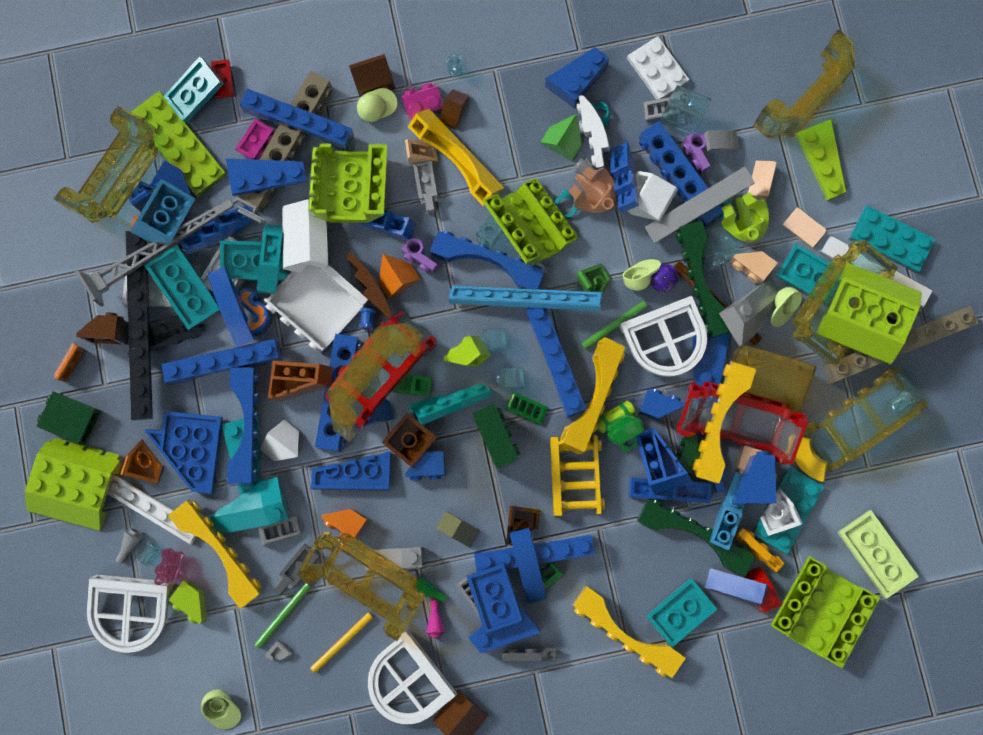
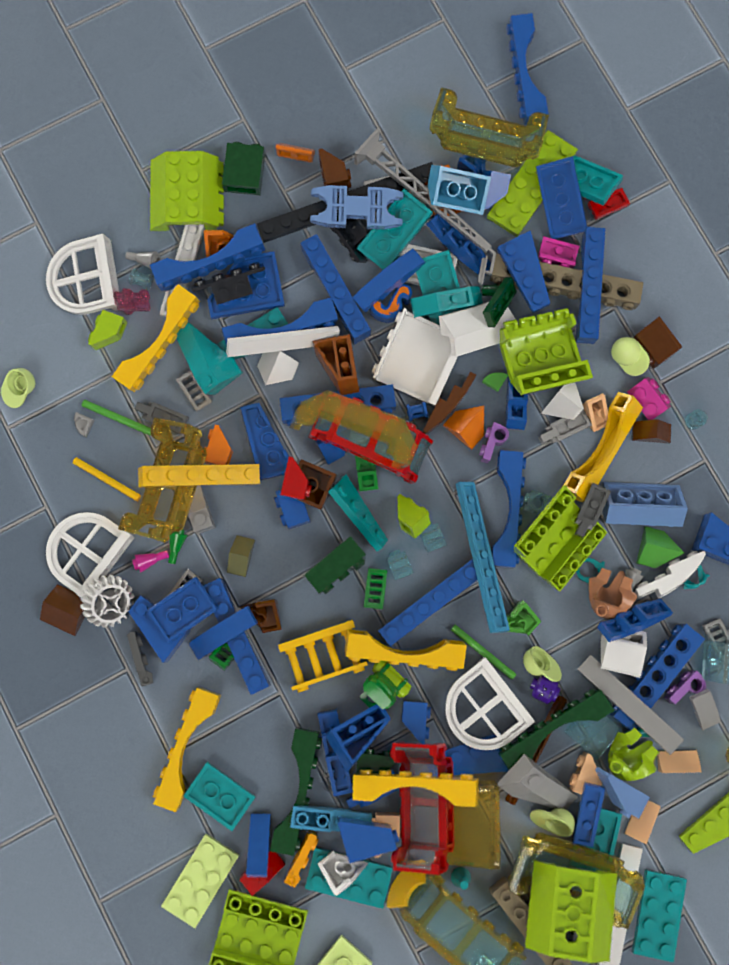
camera: 65 degrees right, 0 degrees up
(21, 107) = (521, 33): none -> blue arch
(153, 302) = (356, 207): none -> medium blue piece
(153, 518) = (173, 272): none -> blue arch
(185, 465) = (231, 285): none -> black bracket
(203, 120) = (561, 198): none -> blue tile
(258, 431) = (278, 341): none -> white tile
(282, 204) = (501, 299): none -> dark green piece
(360, 236) = (495, 380): none -> bright green tile
(367, 547) = (198, 475): none -> yellow arch
(403, 178) = (565, 403): none -> white slope
(403, 453) = (295, 482): none -> red slope
(467, 684) = (98, 614): none -> white gear
(511, 184) = (591, 509): none -> dark grey hinge
(519, 137) = (644, 504): none -> medium blue slope
(754, 652) = (200, 880): none -> yellowish green plate
(778, 237) = (623, 795): none -> medium blue slope
(788, 272) = (588, 814): none -> blue tile
(814, 406) = (461, 877): none -> teal cone

